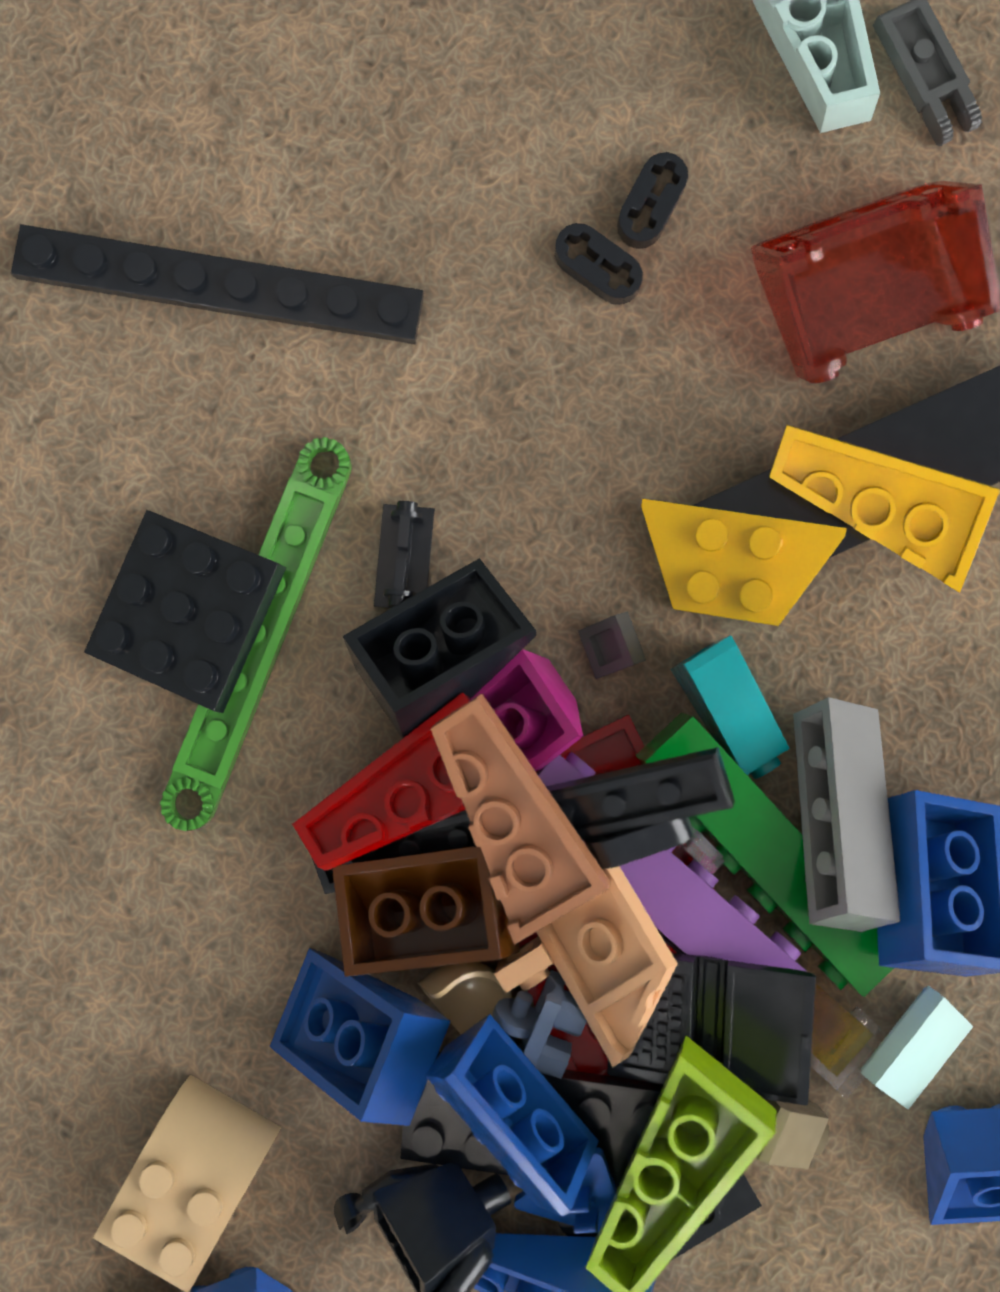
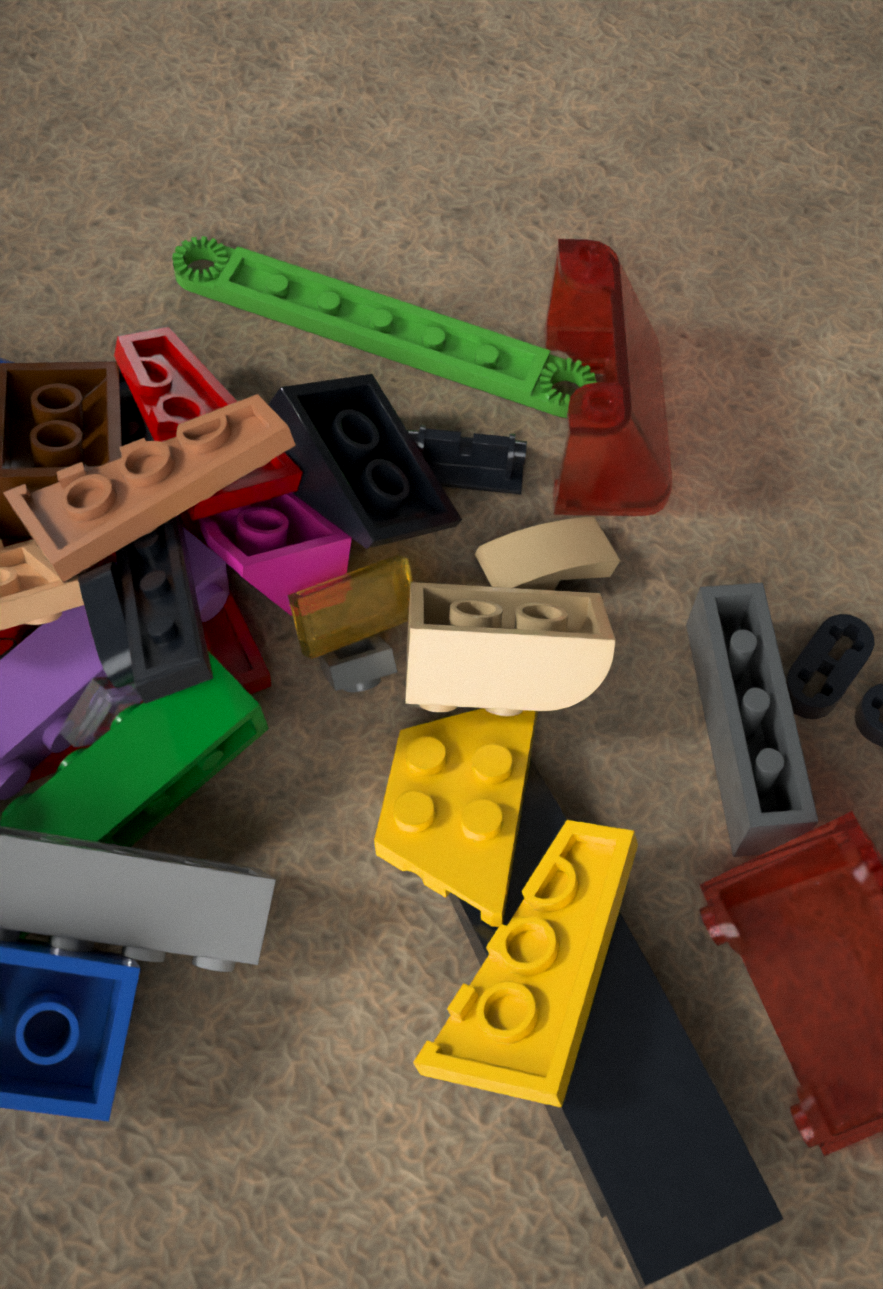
camera: 85 degrees right, 25 degrees down
(185, 611) = (404, 262): black plate -> none
(217, 284) = (757, 319): black plate -> none
(273, 411) = (617, 428): none -> clear red windscreen
(507, 487) = (547, 554): none -> tan slope
(566, 648) = (352, 606): none -> clear yellow tile
(614, 521) = (504, 648): none -> brick
(664, 330) = (749, 719): none -> dark grey brick
(732, 706) = (273, 778): teal slope -> none

